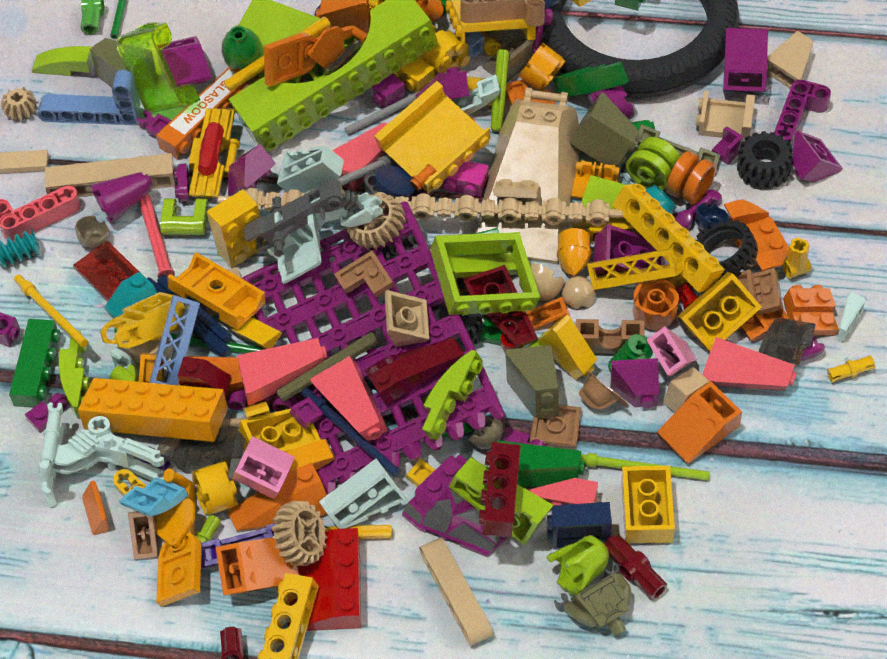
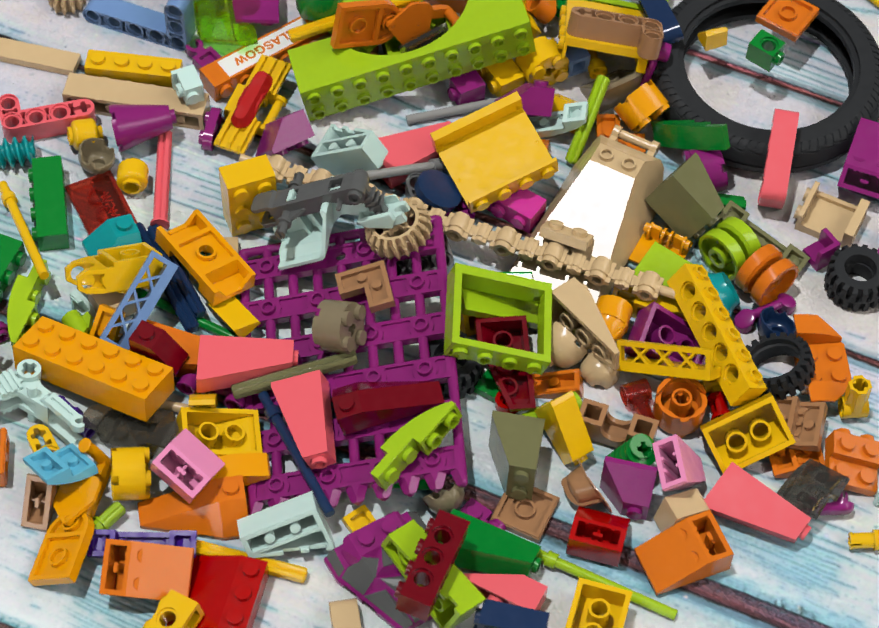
camera: 10 degrees right, 0 degrees up
(65, 282) = (50, 203): none -> green brick
(72, 213) = (82, 130): none -> yellow head
(100, 148) = (131, 67): none -> yellow brick
(129, 240) = (132, 175): none -> yellow head
(152, 150) = (188, 85): none -> light aqua brick
(184, 225) = (195, 175): lime connector -> none
(299, 533) = (203, 543): tan gear -> none
(306, 412) = (255, 418): magenta plate -> none
(354, 315) = (339, 326): none -> dark tan brick
(406, 319) = (394, 345): tan slope -> none
(418, 180) = (464, 195): orange pin -> none
(549, 250) = (579, 314): none -> tan wedge
(617, 306) = (637, 396): none -> clear red pin
(624, 430) = (597, 536): none -> red slope
(670, 80) = (778, 159): none -> coral beam

